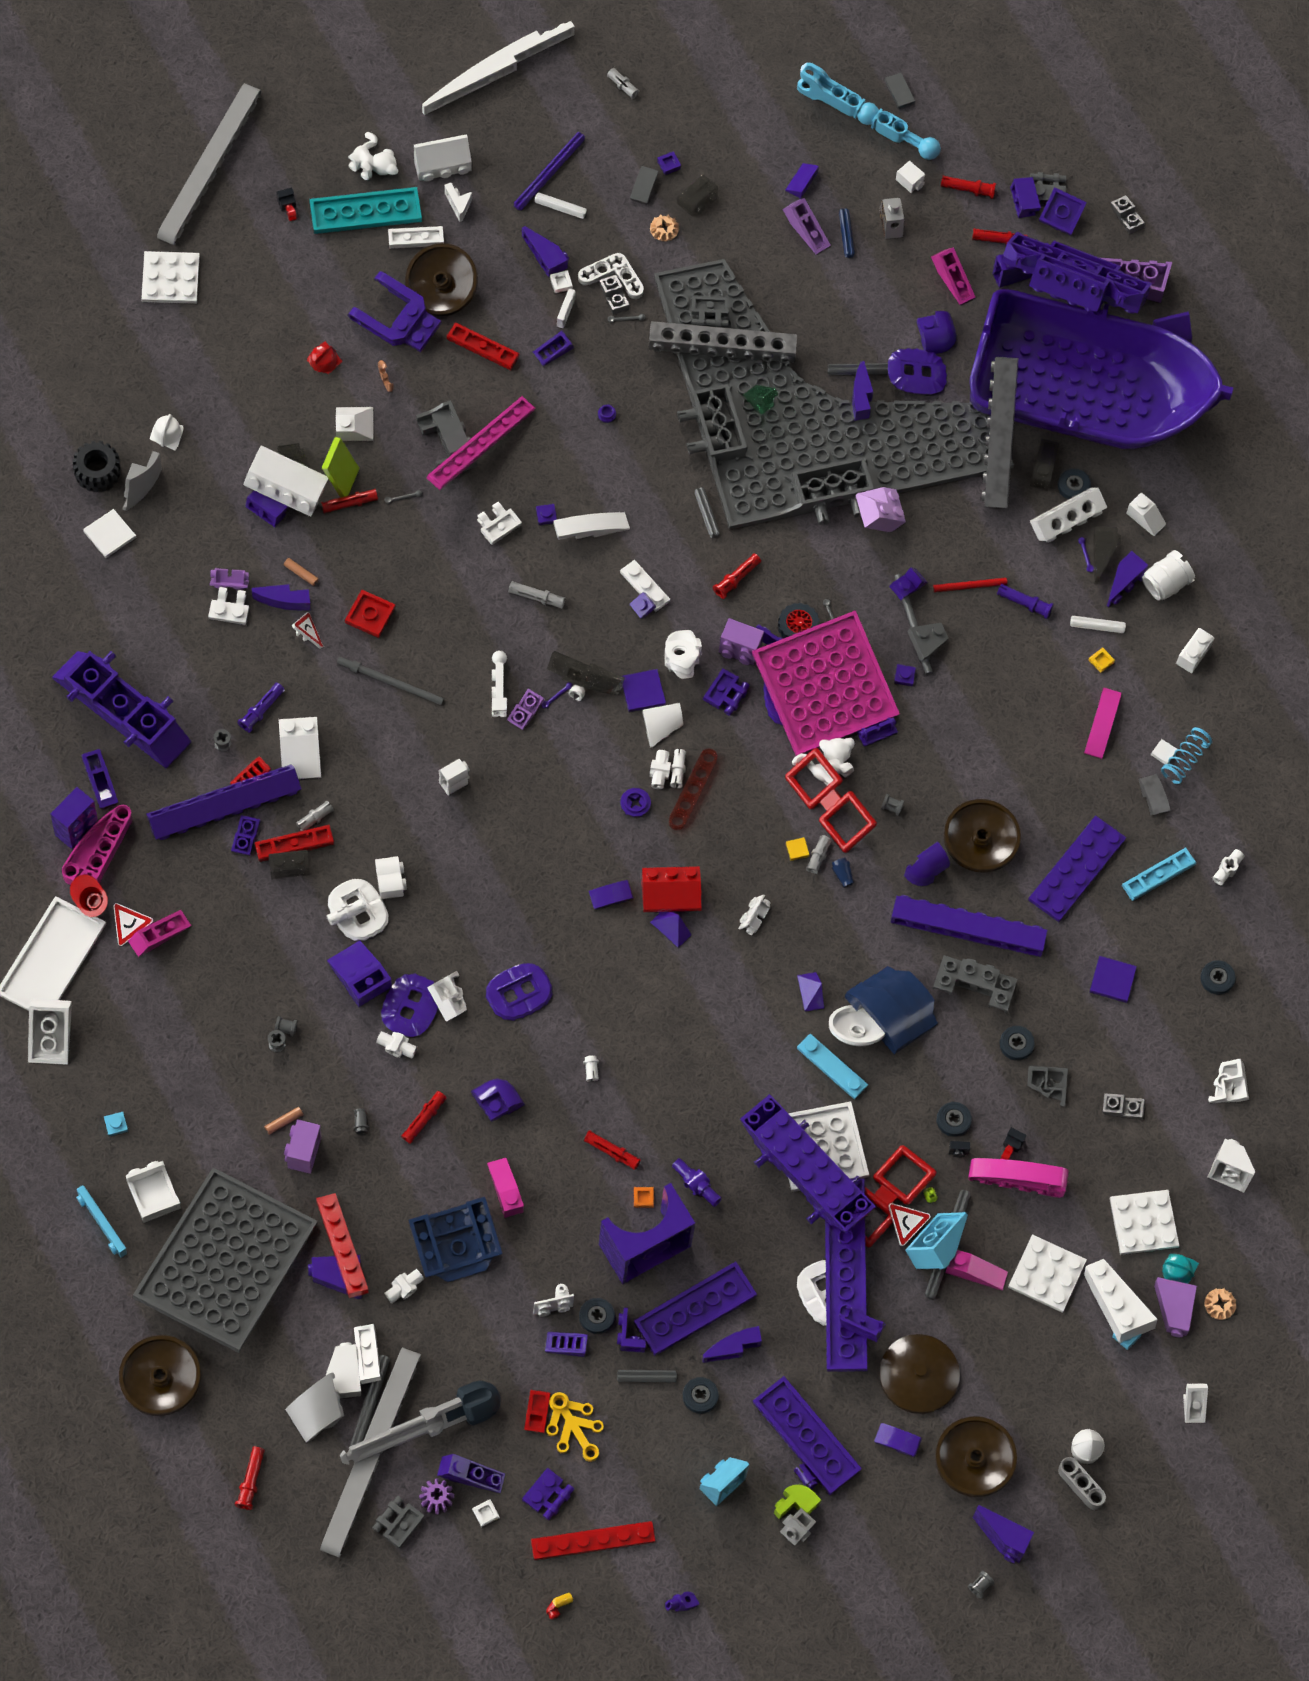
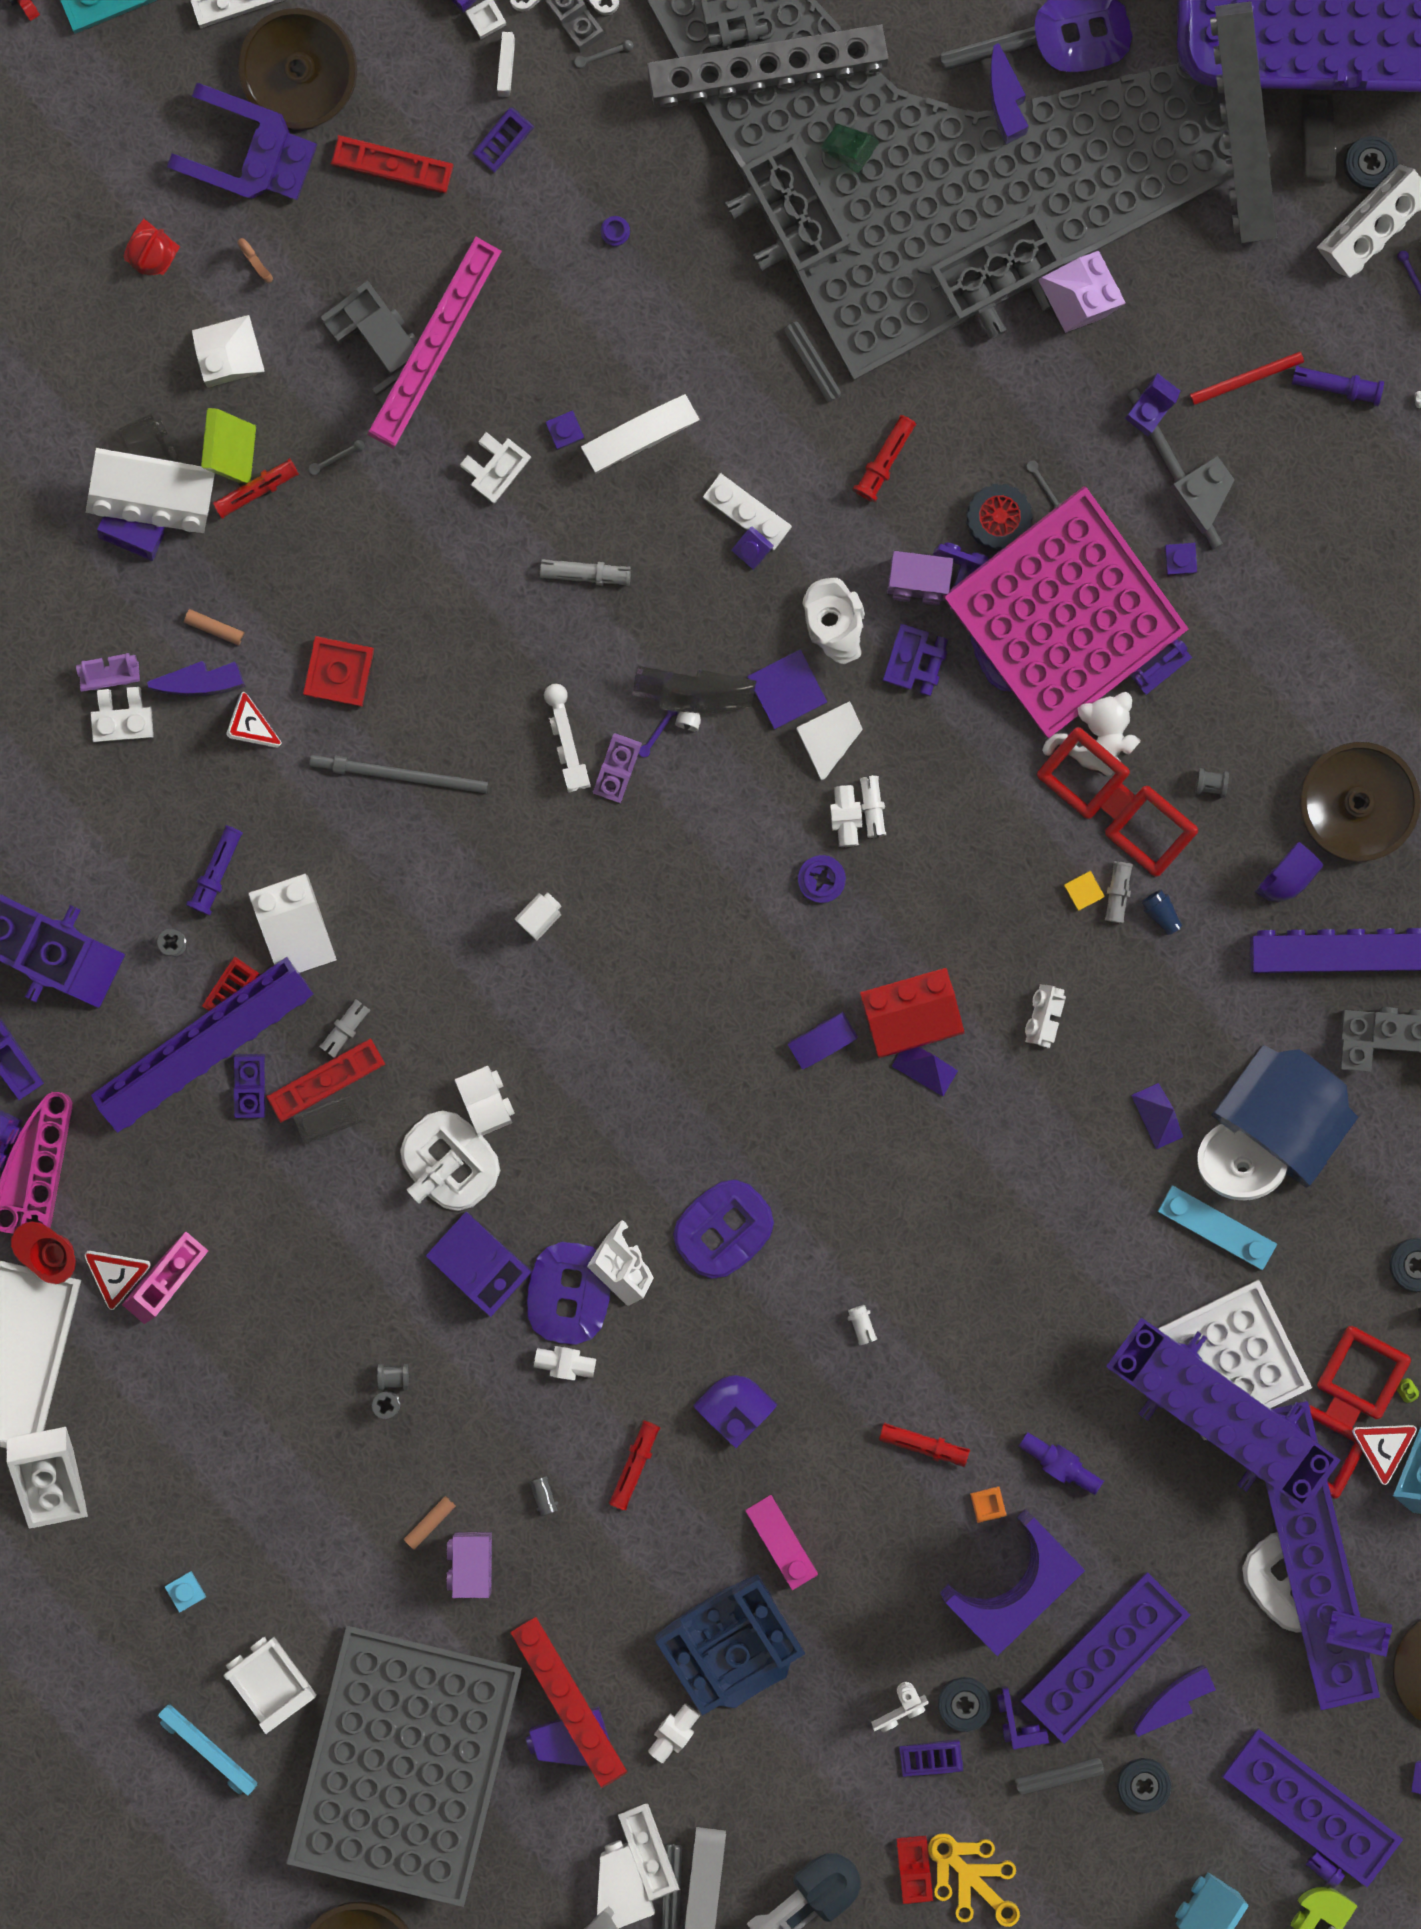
camera: 10 degrees left, 20 degrees up
(693, 780) = (911, 821): clear red beam -> none

